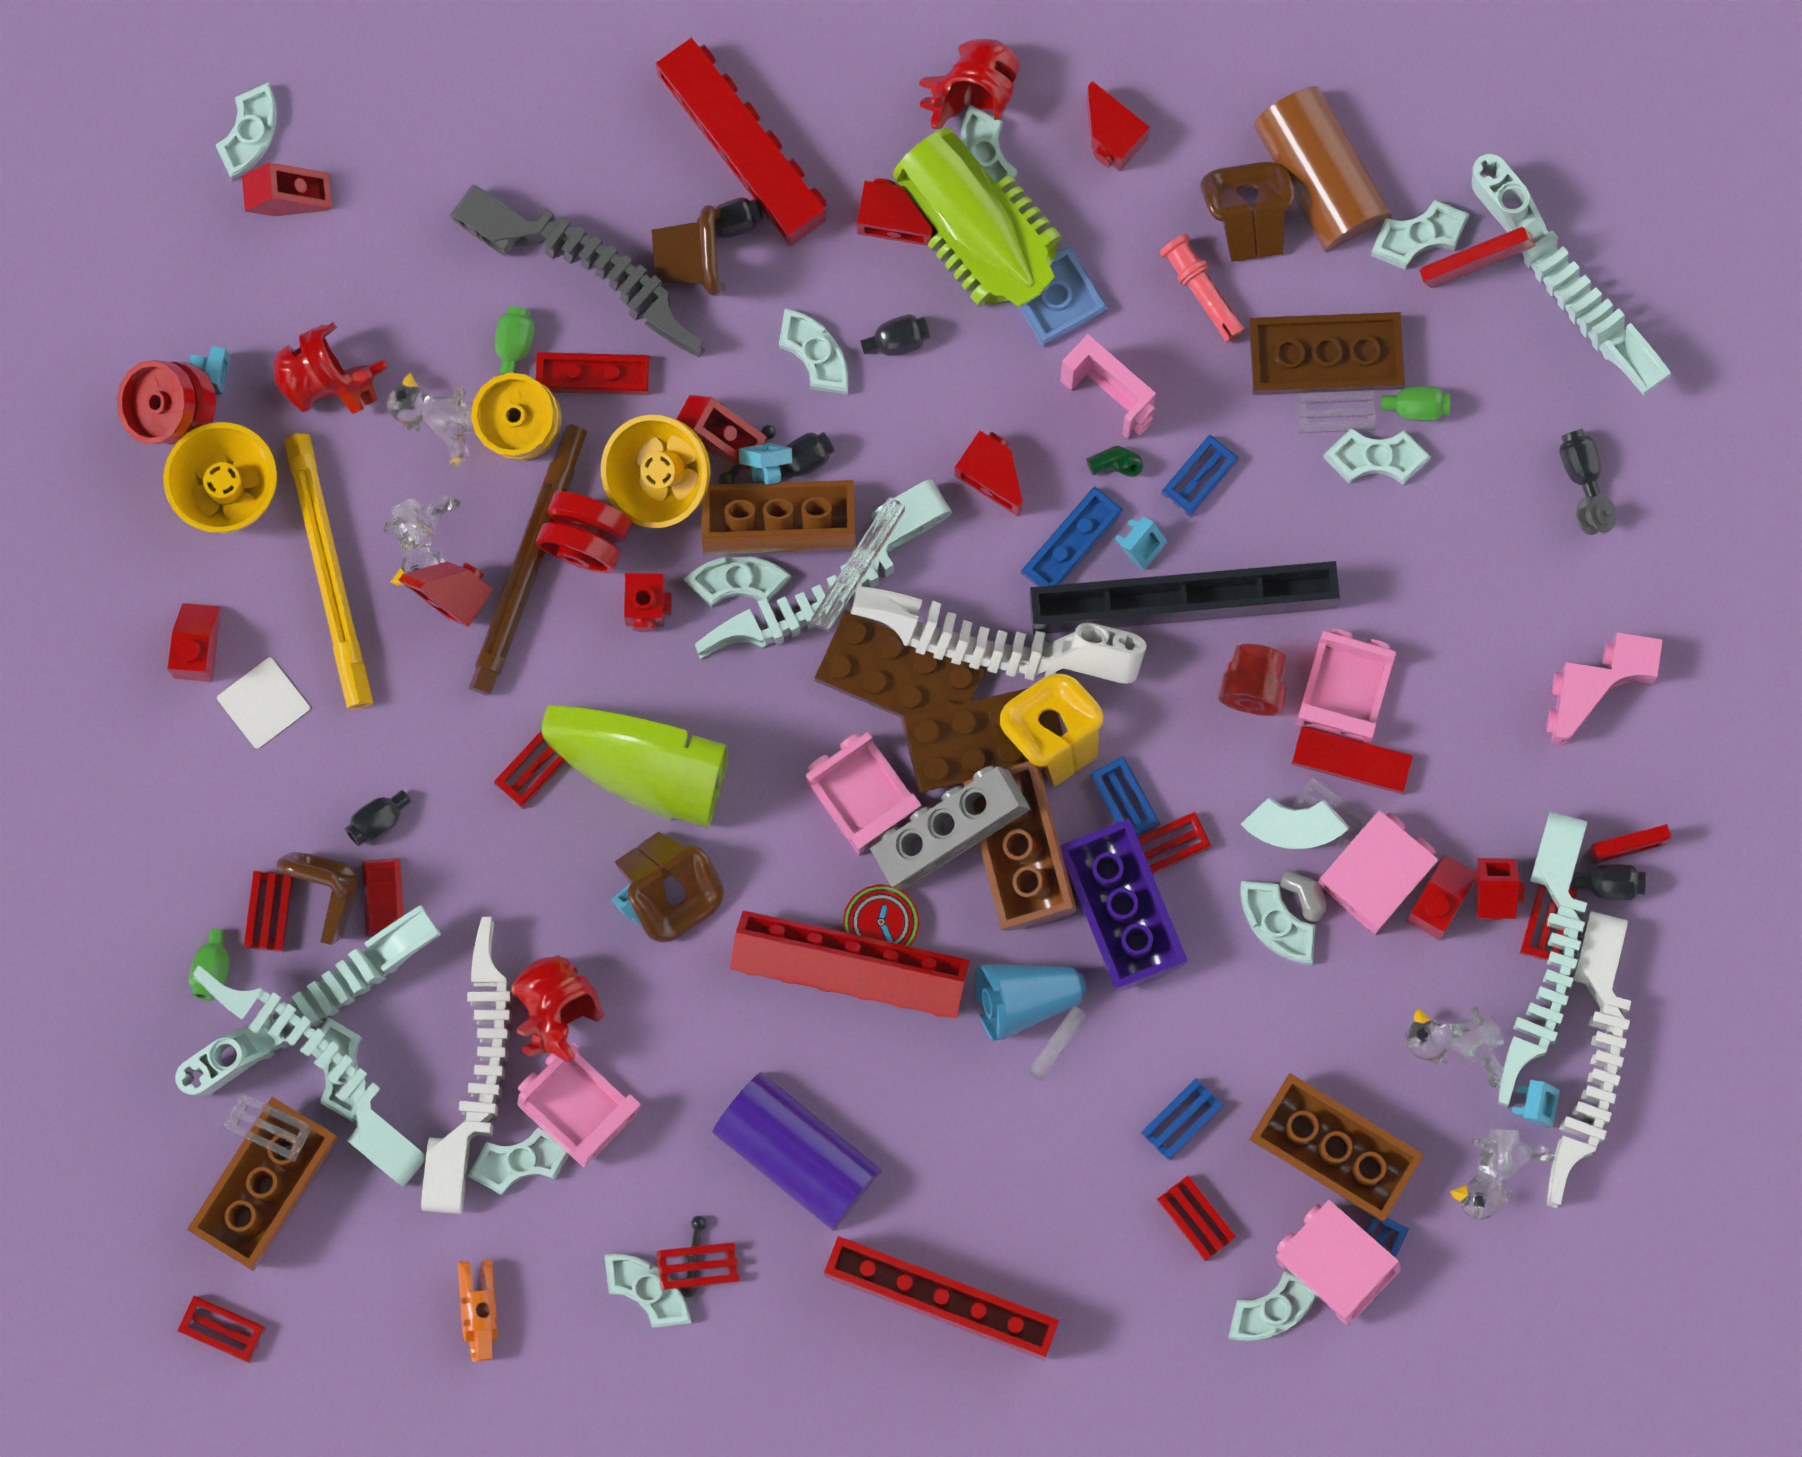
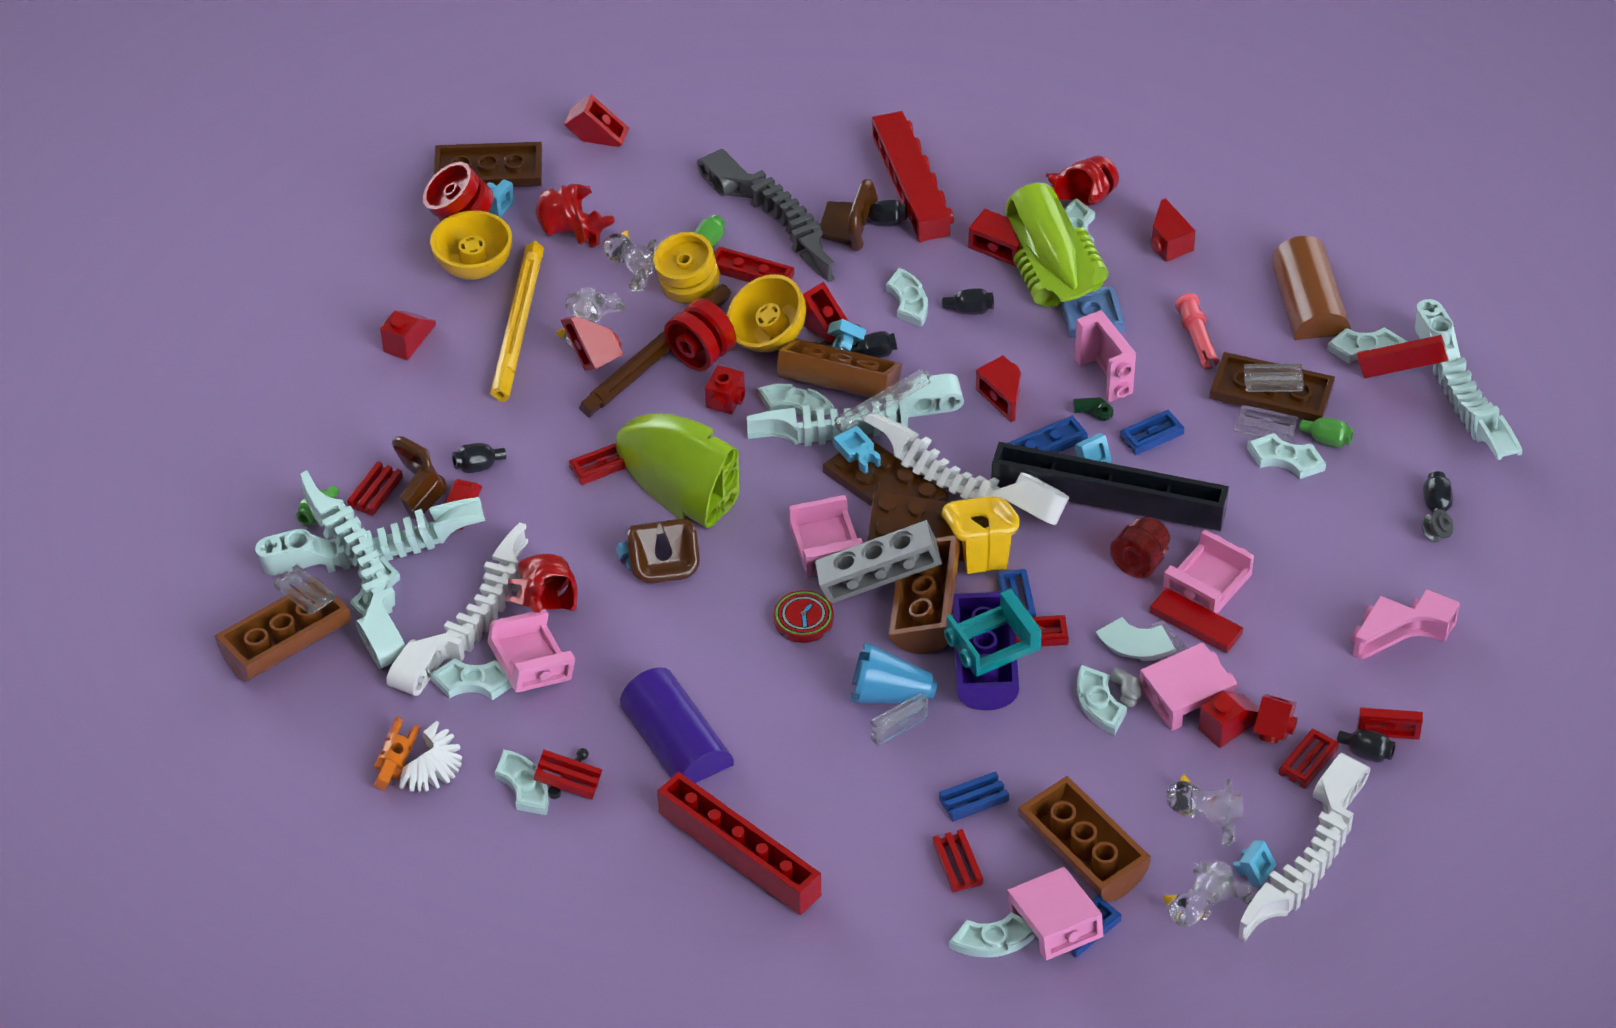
camera: 20 degrees right, 30 degrees down
(171, 313) = (496, 161): none -> reddish brown plate
(251, 131) = (598, 85): light aqua tile -> none
(252, 1343) = (220, 727): red tile -> none
(263, 703) = (435, 380): white sticker -> none
(529, 1306) = (435, 763): none -> white hair
(849, 964) = (768, 625): red brick -> none
(851, 648) = (857, 446): none -> medium azure plate
(1136, 858) = (1010, 612): none -> teal panel
(1253, 227) = (1248, 298): reddish brown piece -> none
(1356, 335) = (1279, 376): none -> clear tile
(1555, 870) = (1326, 715): light aqua piece -> none

